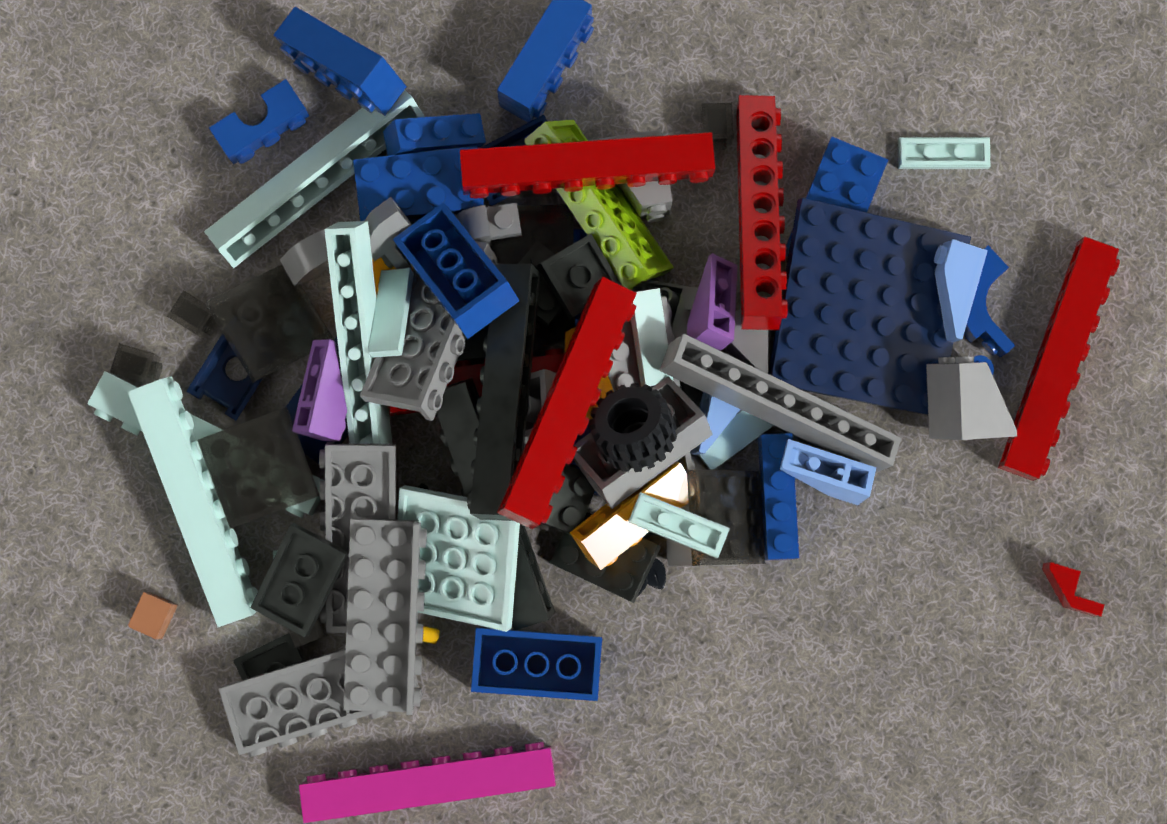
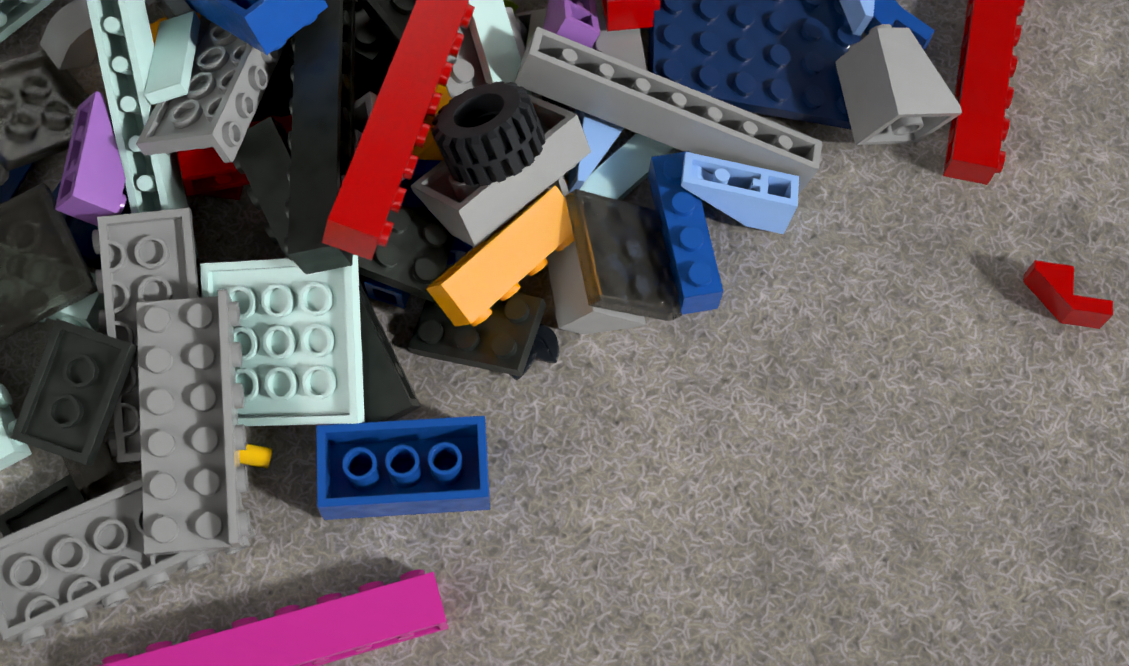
camera: 10 degrees left, 15 degrees down
(678, 525) = (563, 252): light aqua tile -> none

